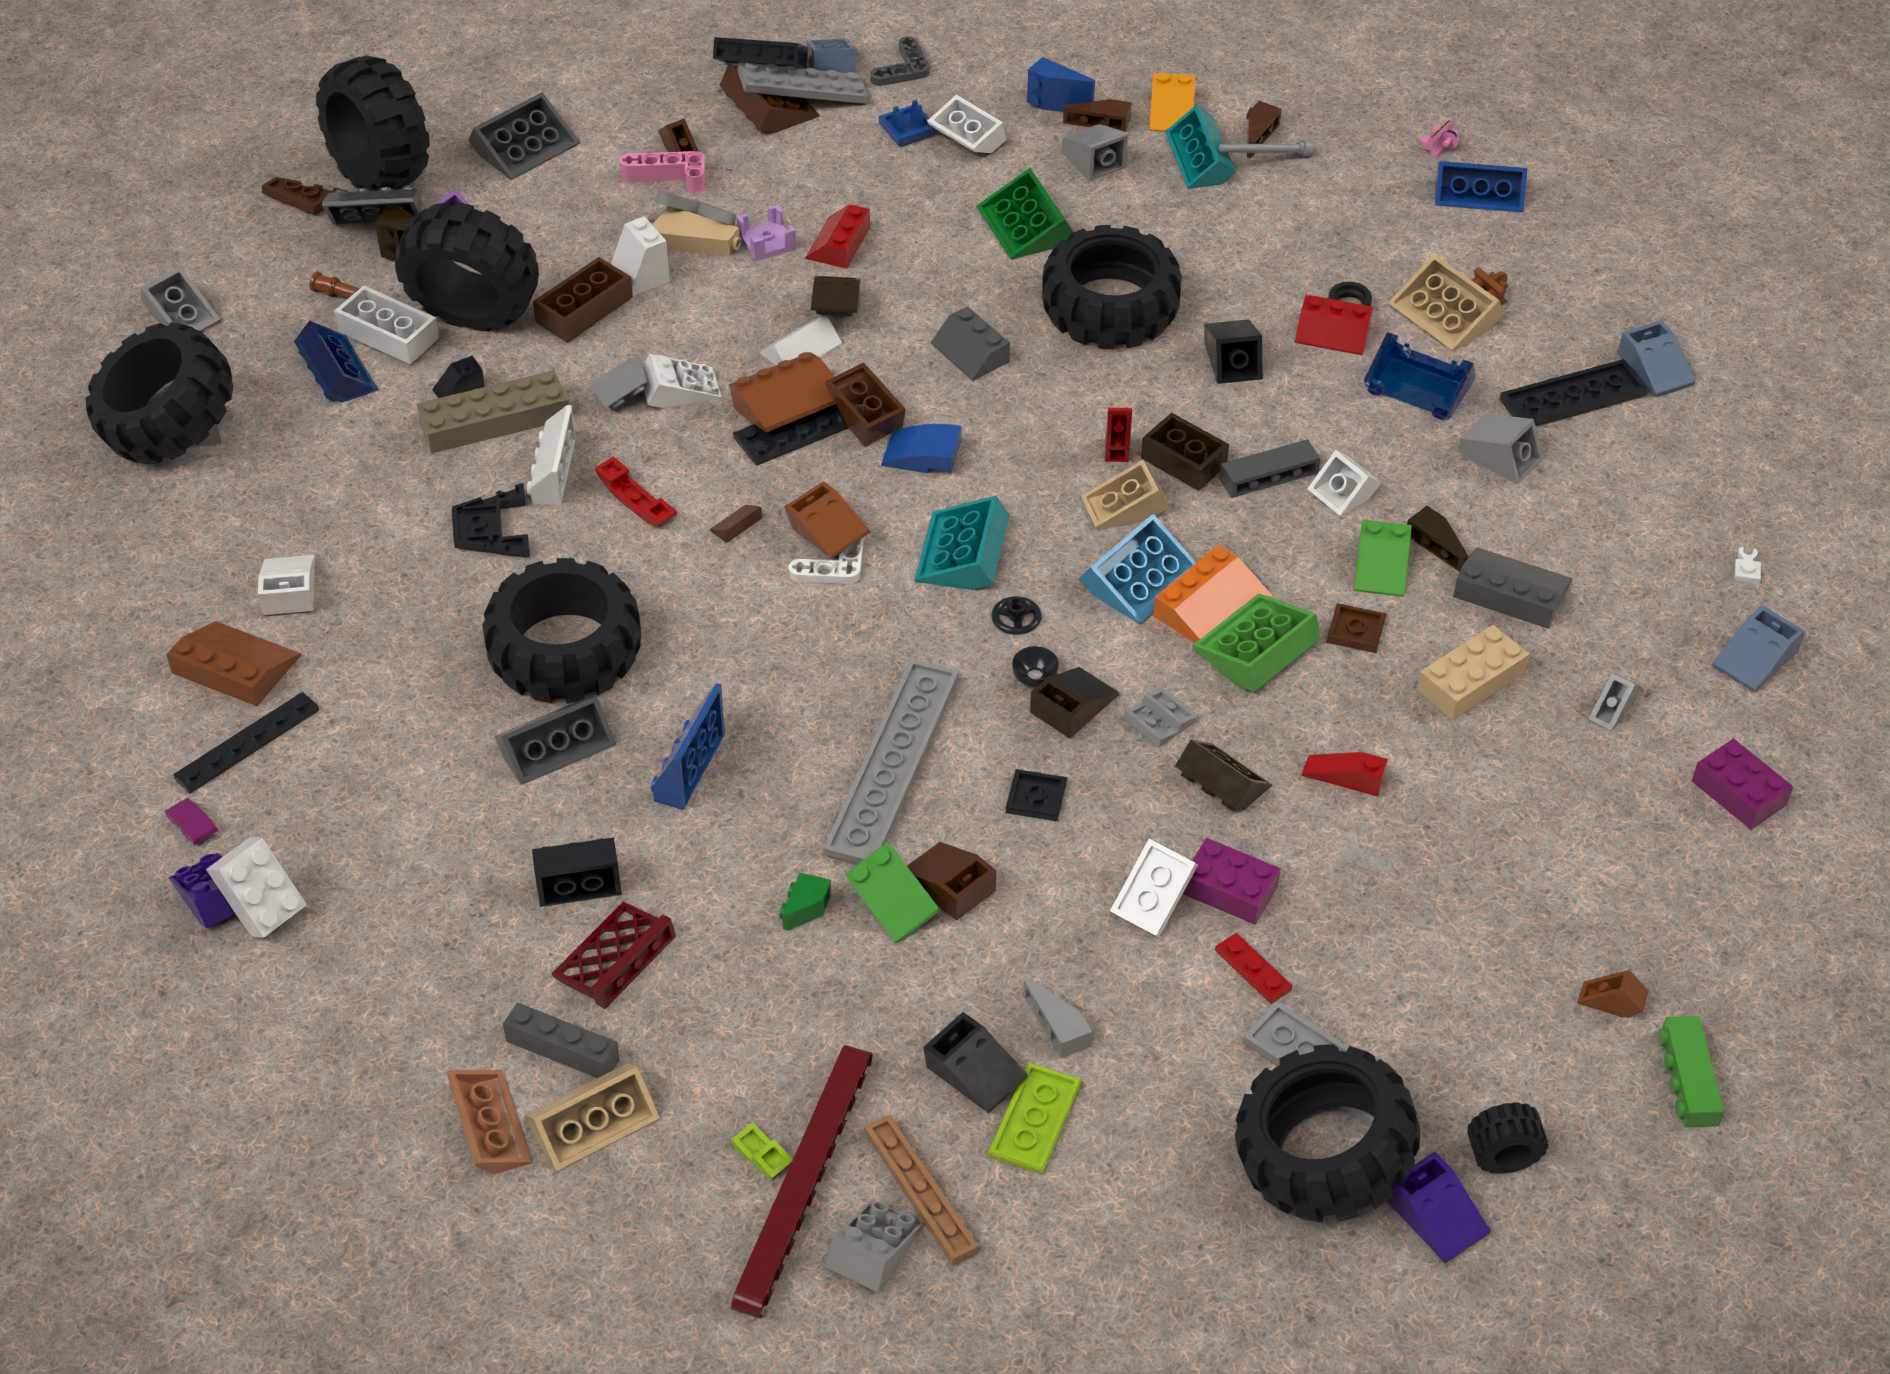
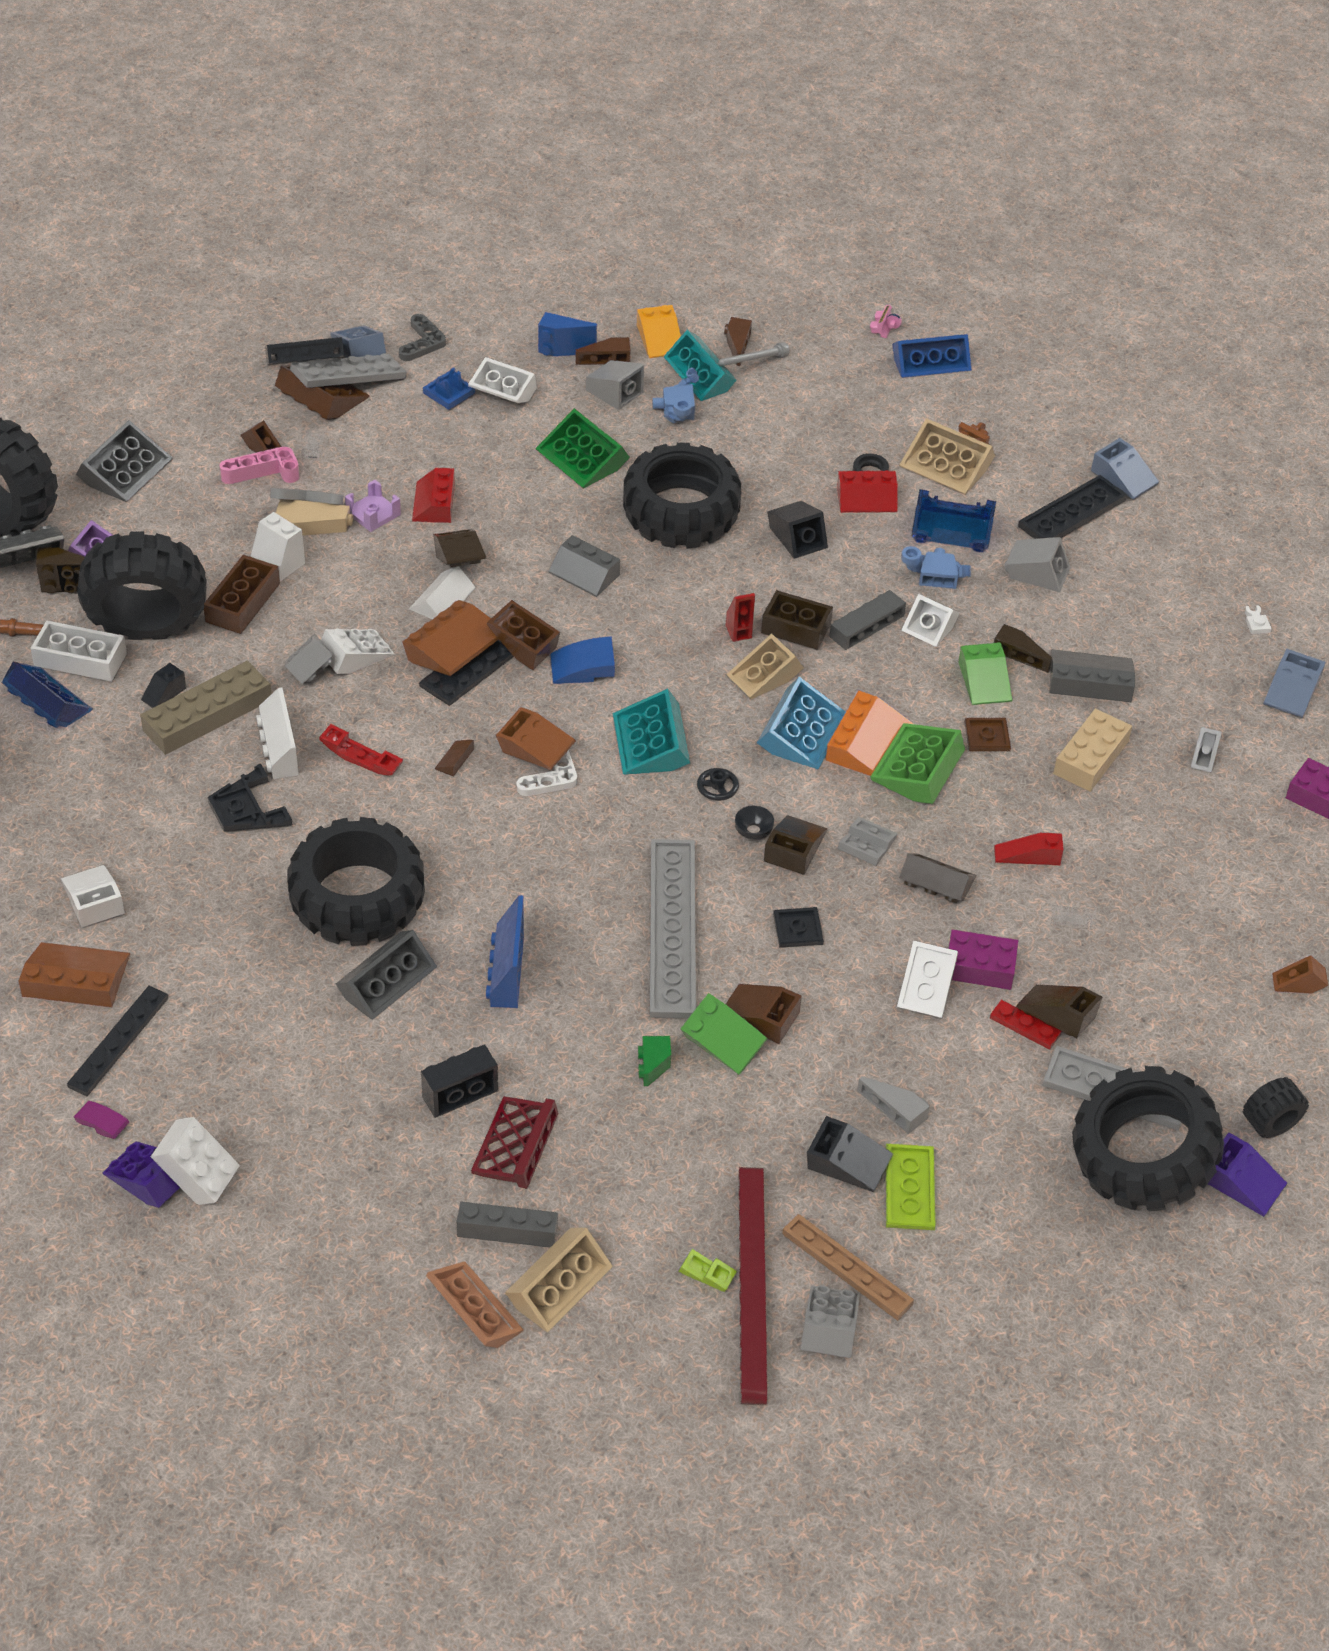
camera: 20 degrees left, 0 degrees up
(1159, 182) = (678, 399): none -> medium blue torso
(1303, 958) = (1062, 1007): none -> dark brown slope
(1374, 426) = (935, 567): none -> medium blue torso

